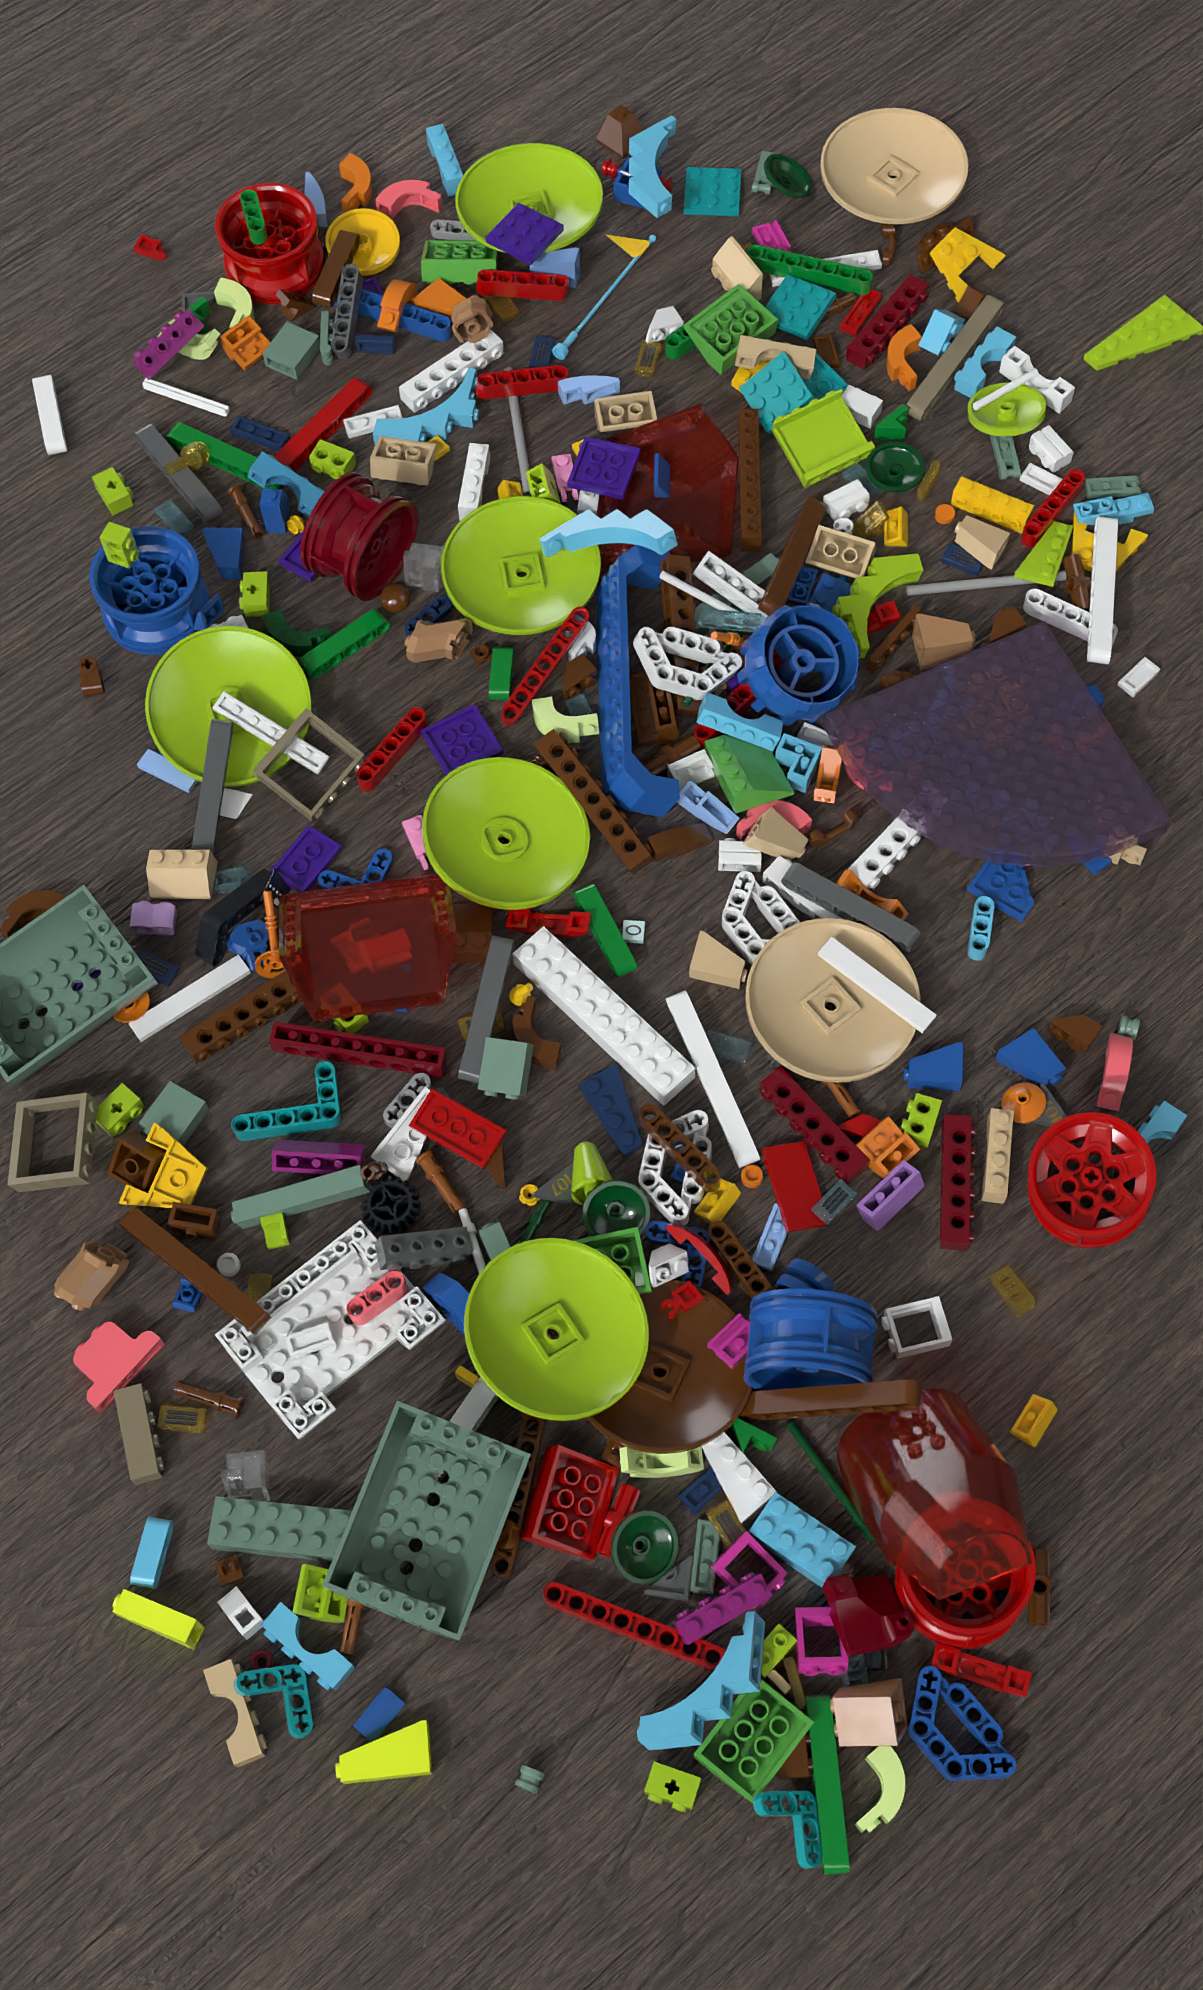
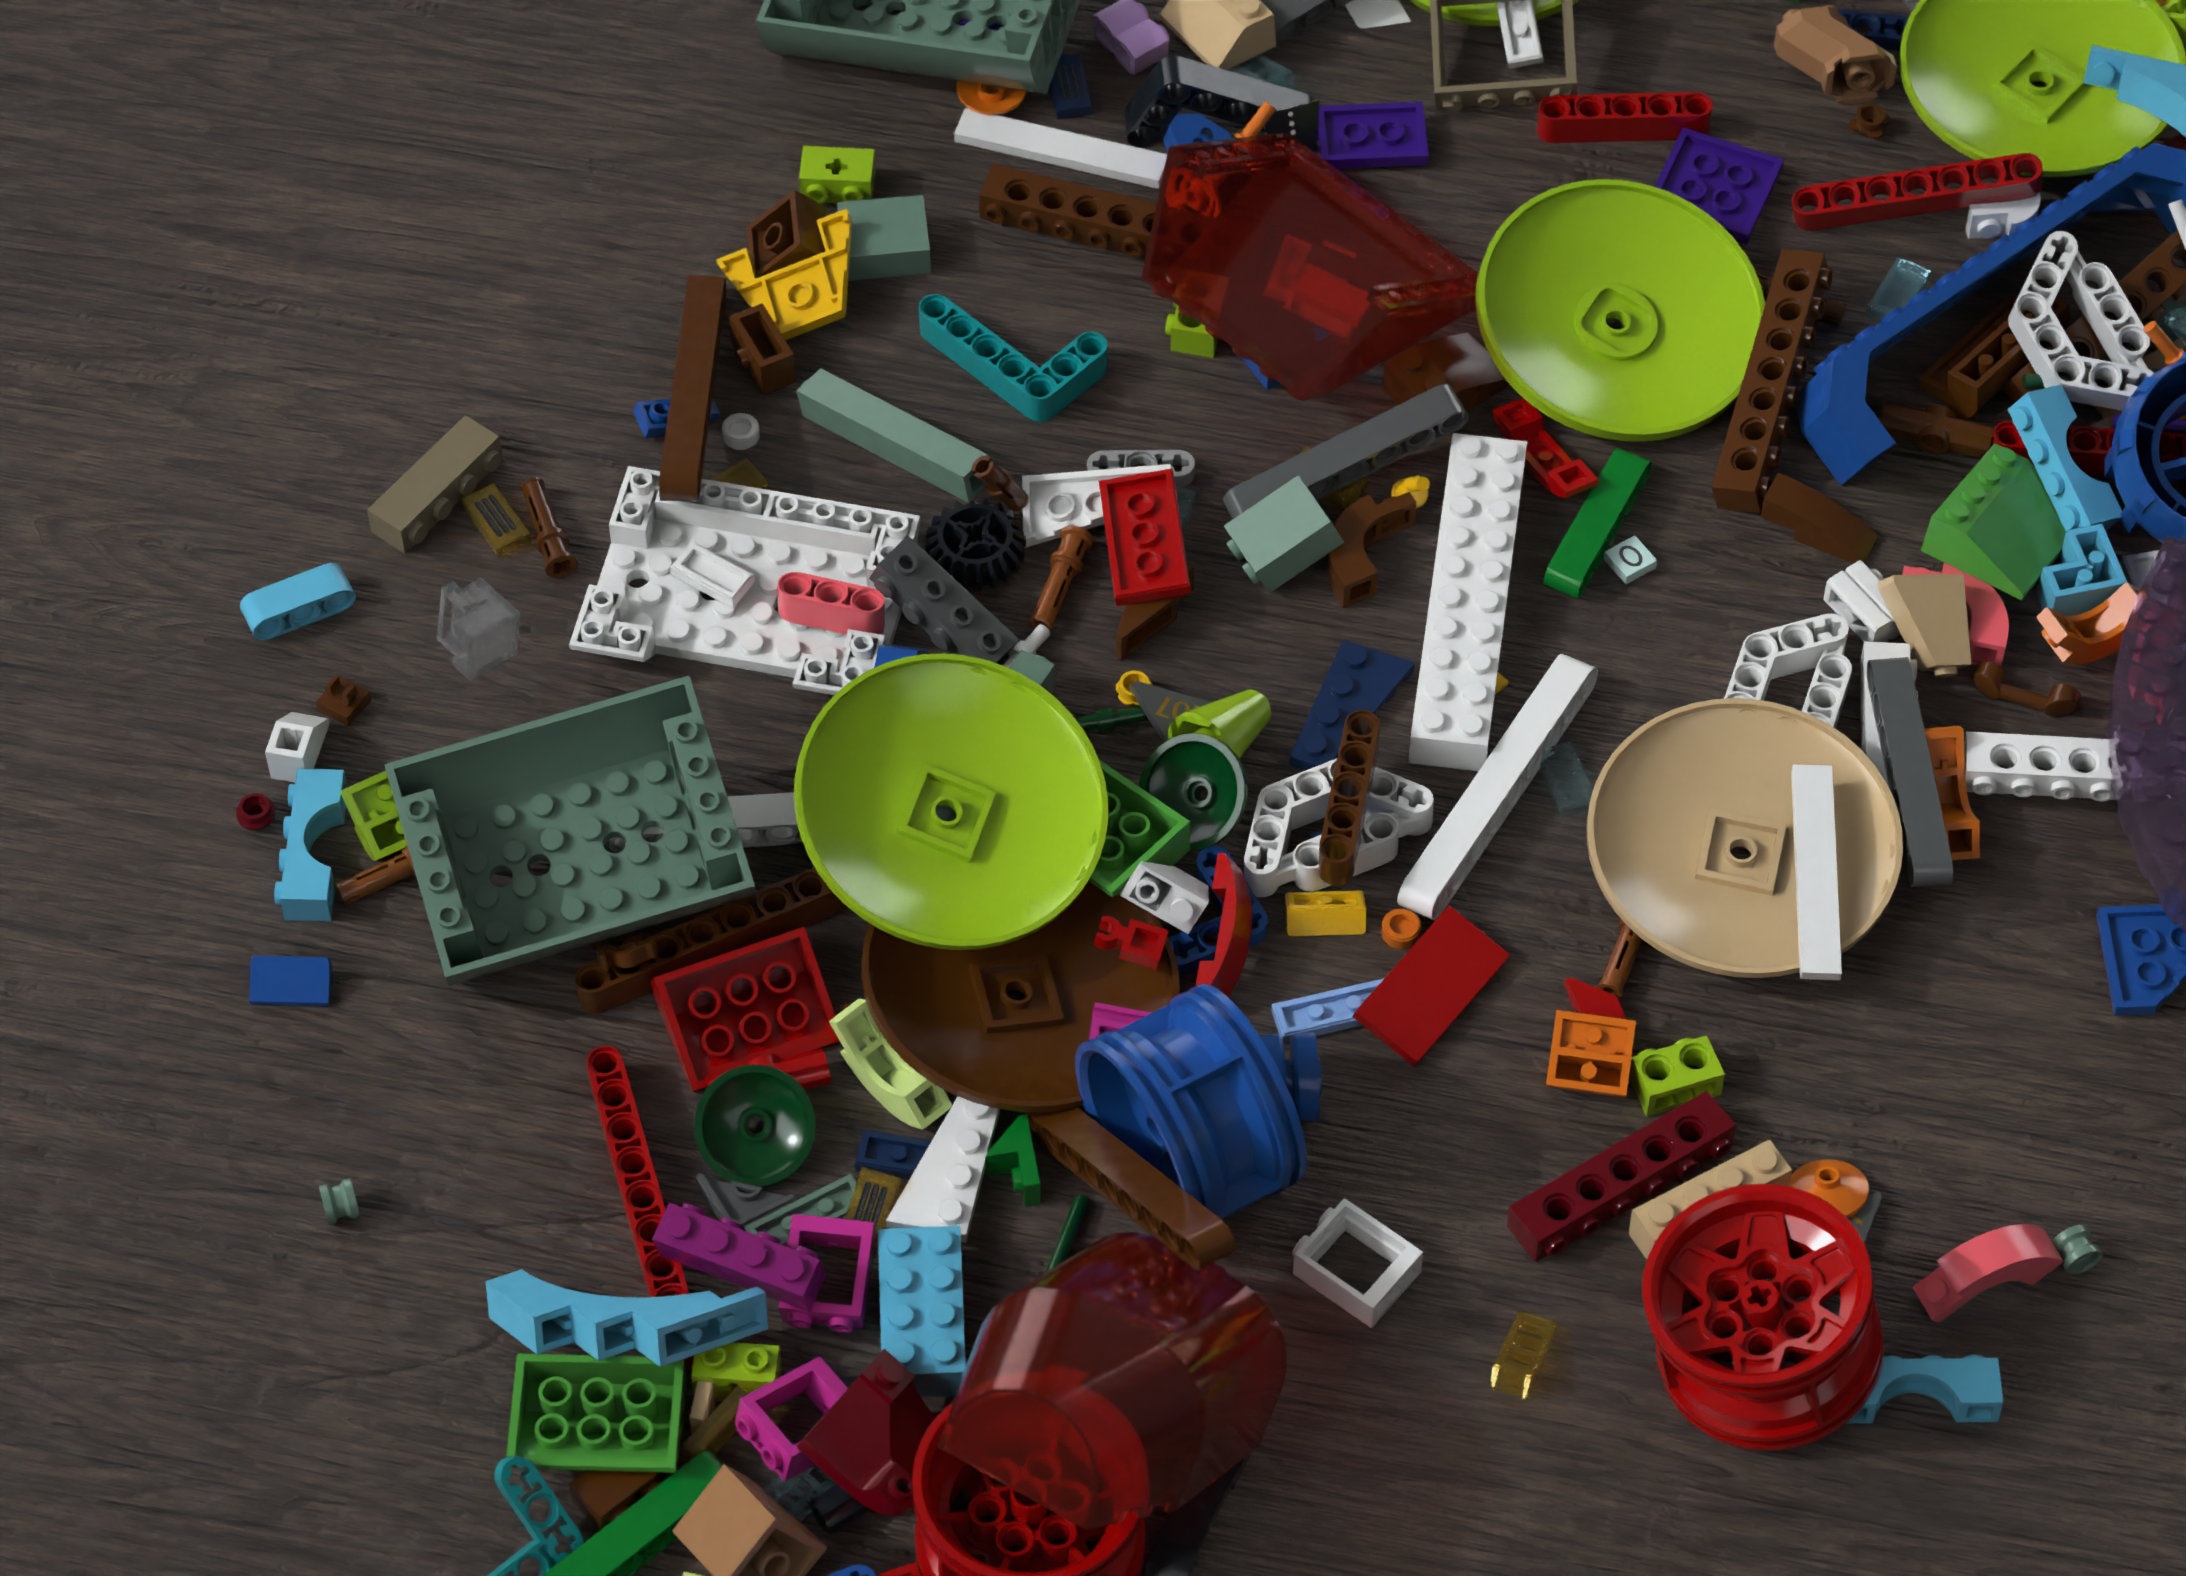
camera: 50 degrees right, 10 degrees down
(23, 1138) = (712, 106): dark tan window -> none
(91, 1275) = (594, 291): medium nougat brick -> none
(113, 1360) = (507, 393): coral brick -> none
(158, 1618) = (218, 665): neon yellow slope -> none
(245, 1743) = (140, 858): tan arch -> none
(275, 1230) = (833, 447): lime panel -> none
(276, 1529) = (421, 684): sand green brick -> none
(288, 1688) = (242, 862): teal beam -> none
(316, 1156) = (963, 413): magenta brick -> none
(358, 1049) = (1157, 364): dark red brick -> none
(373, 867) = (1431, 213): blue beam -> none
(390, 1757) = (245, 1027): neon yellow slope -> none
(501, 673) = (1867, 155): green beam -> none
(572, 727) = (1853, 280): yellowish green arch -> none
(578, 676) = (1943, 243): reddish brown slope -> none
(664, 1775) = (454, 1351): lime brick -> none
(693, 767) = (1935, 462): white hinge -> none
(707, 807) = (1901, 517): light blue slope -> none
(716, 963) = (1671, 670): tan slope -> none
(738, 1260) = (1268, 953): reddish brown beam -> none
(781, 1081) = (1531, 1035): dark red brick -> none
(833, 1201) = (1451, 1045): clear light blue tile -> none
(890, 1195) = (1522, 1103): medium lavender brick -> none
(936, 1069) = (1774, 1046): blue slope -> none
(982, 919) = (2061, 952): medium azure beam -> none
(1032, 1059) = (1904, 1154): blue slope -> none
(1034, 1420) = (1354, 1502): yellow slope -> none
(1076, 1030) = (2006, 1186): reddish brown slope -> none

